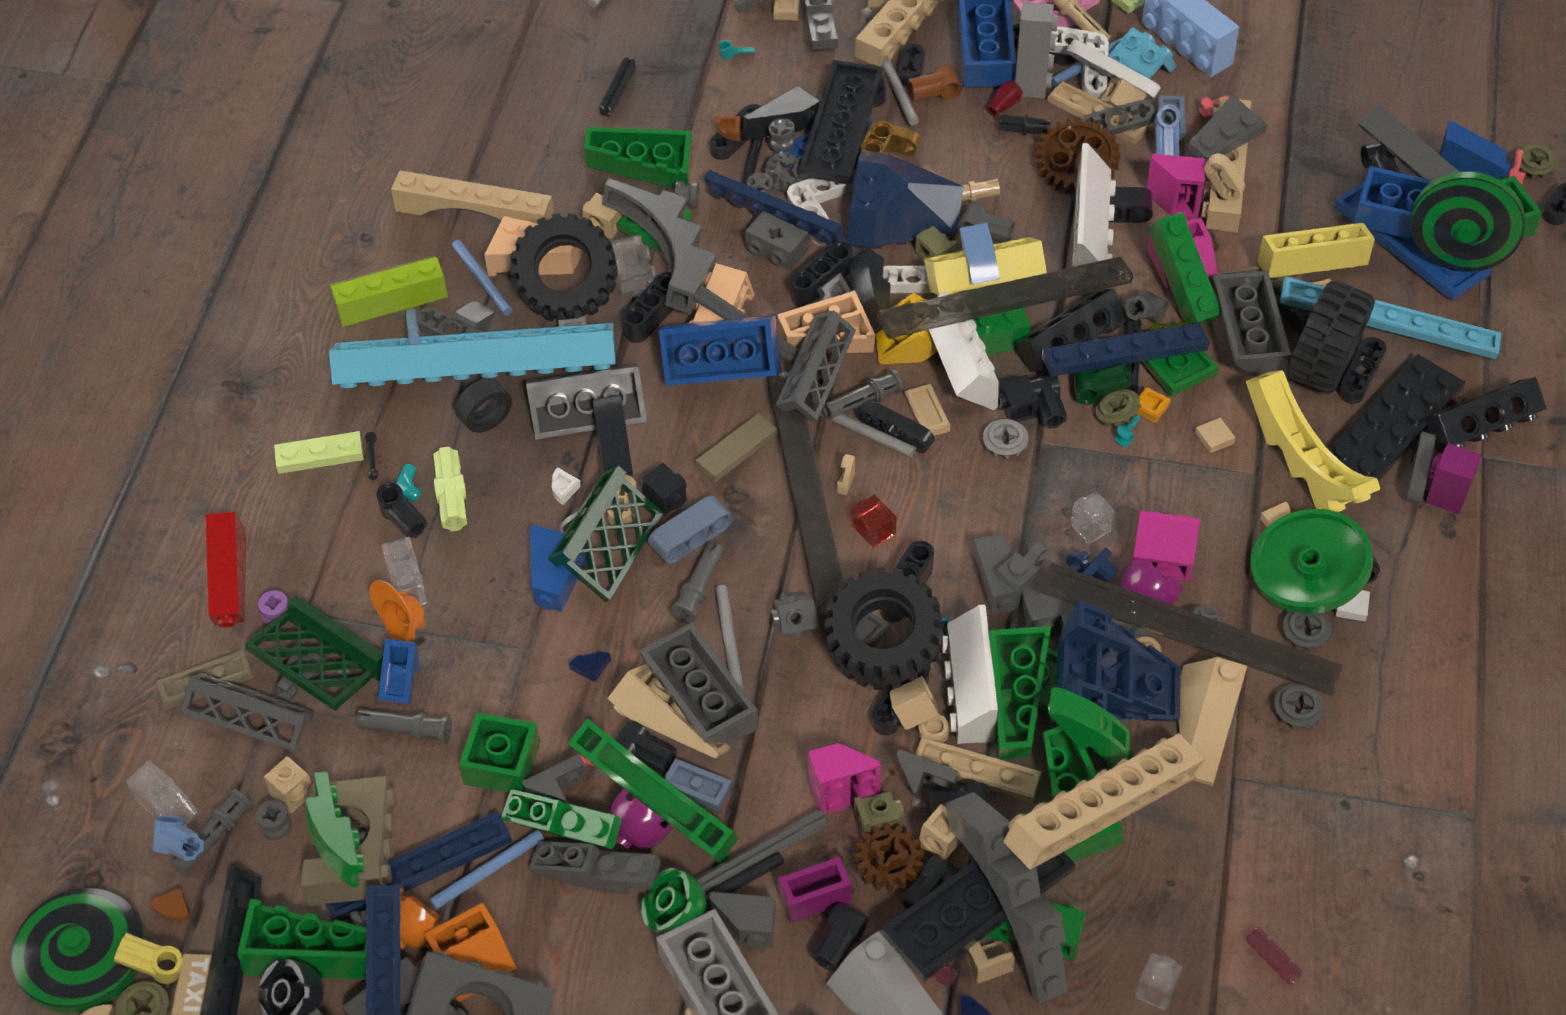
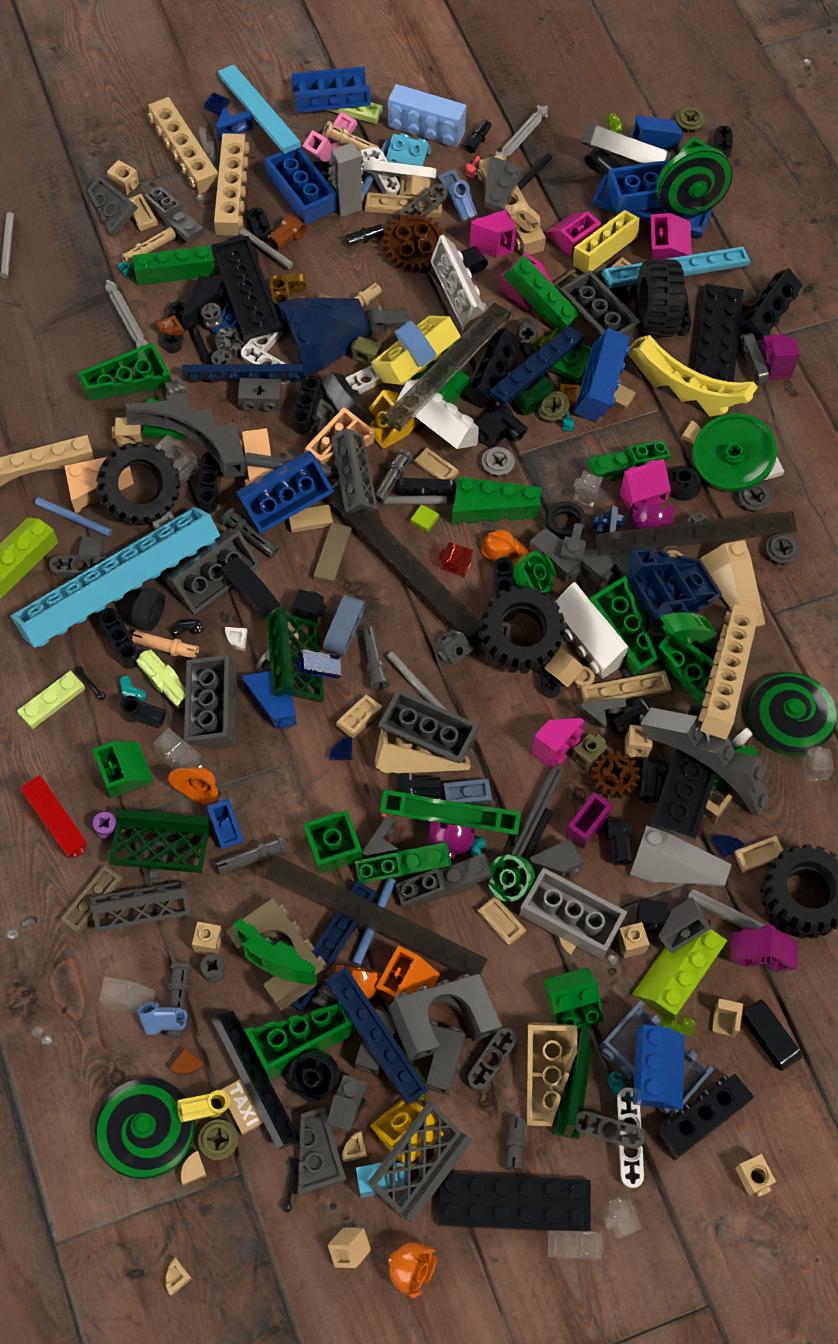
camera: 35 degrees left, 10 degrees up
(334, 555) = (122, 767): none -> green slope
(412, 326) = (60, 577): medium blue bar -> none
(433, 420) = (118, 629): none -> black beam
(479, 536) = (211, 702): none -> dark grey slope
(486, 461) = (174, 646): none -> light nougat pin
(489, 866) = (375, 917): none -> clear smoke plate
(515, 445) = (185, 625): none -> black arm
(617, 87) = (68, 331): black axle -> none
(629, 556) = (319, 664): none -> clear blue tile
(633, 635) = (359, 716): none -> tan plate
(633, 951) = (501, 921): none -> tan tile
(654, 372) = (243, 525): none -> dark grey pin
(663, 850) = (478, 843): none -> teal arm
(691, 93) = (125, 314): none -> light grey wheel
(738, 398) = (311, 518): none -> tan tile
(768, 36) = (149, 245): none -> tan pin
(778, 65) = (173, 265): none -> green brick
(847, 475) = (416, 536): tan tile -> none
(871, 460) = (424, 518): none -> lime tile
(947, 538) = (502, 544): none -> orange piece
(954, 577) = (534, 571): none -> green cylinder
(966, 477) = (493, 501): none -> green wedge
(1006, 97) = (339, 220): dark red cone -> none
(1040, 524) = (565, 508): none -> black tyre
(1082, 898) = (741, 738): none -> white tile
(1133, 499) = (616, 464): none -> green slope
(1172, 906) = (791, 714): none -> dish
(1198, 395) = (602, 375): none -> blue brick
(1219, 577) = (681, 489): none -> black piece
(1242, 73) = (478, 136): none -> black axle
(1283, 140) = (534, 171): none -> black bar
(1285, 219) = (573, 230): none -> dark pink slope
(1302, 92) = (523, 132): none -> light grey wheel
(1404, 277) = (670, 236): none -> dark pink slope
(1429, 127) = (614, 123): none -> clear neon green arm
(1515, 170) = (687, 135): coral hand -> none

